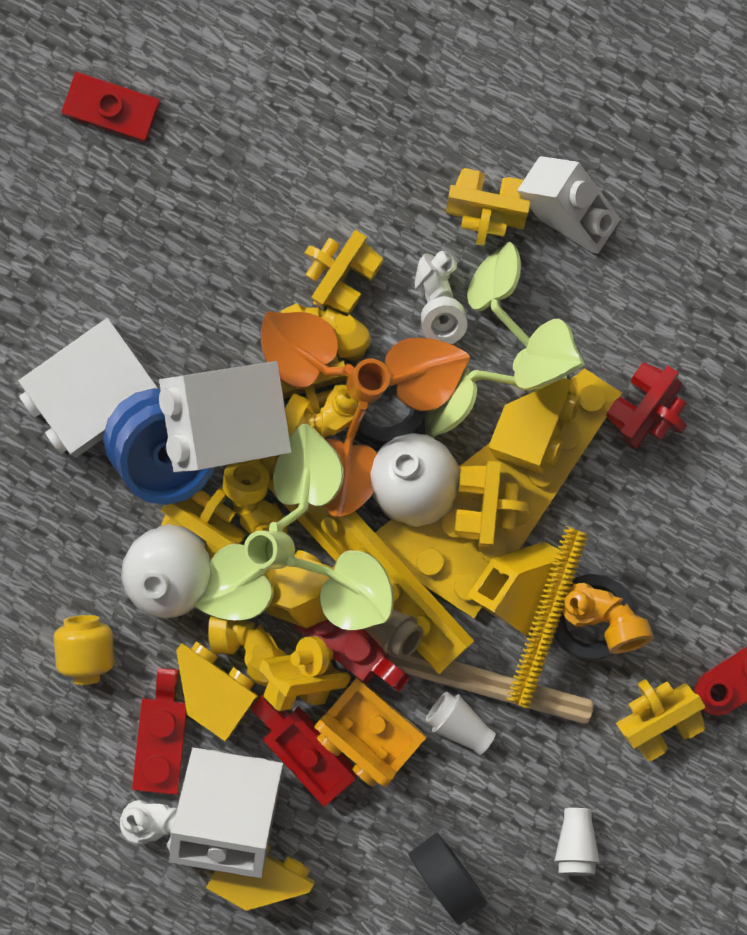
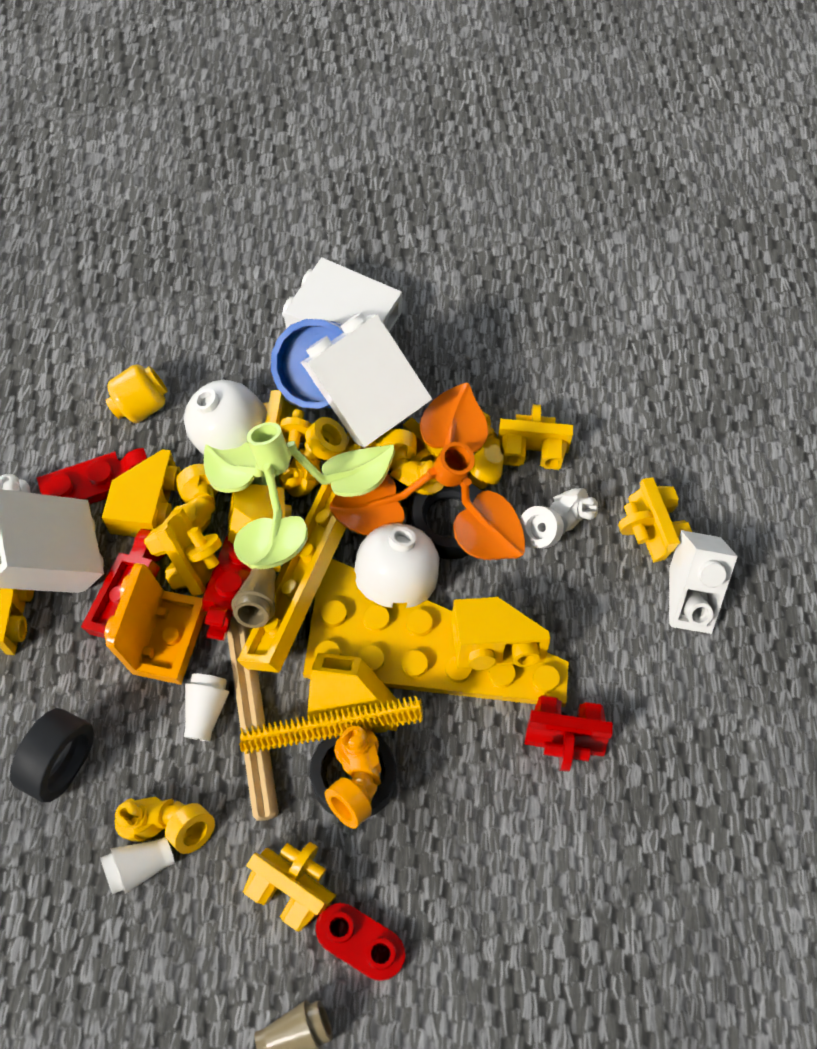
camera: 60 degrees right, 20 degrees down
(110, 107) = (560, 242): red plate -> none
(485, 482) = (406, 633): yellow hips -> none
(540, 817) = (185, 825): none -> yellow arm
(548, 354) = (550, 600): yellowish green plant -> none

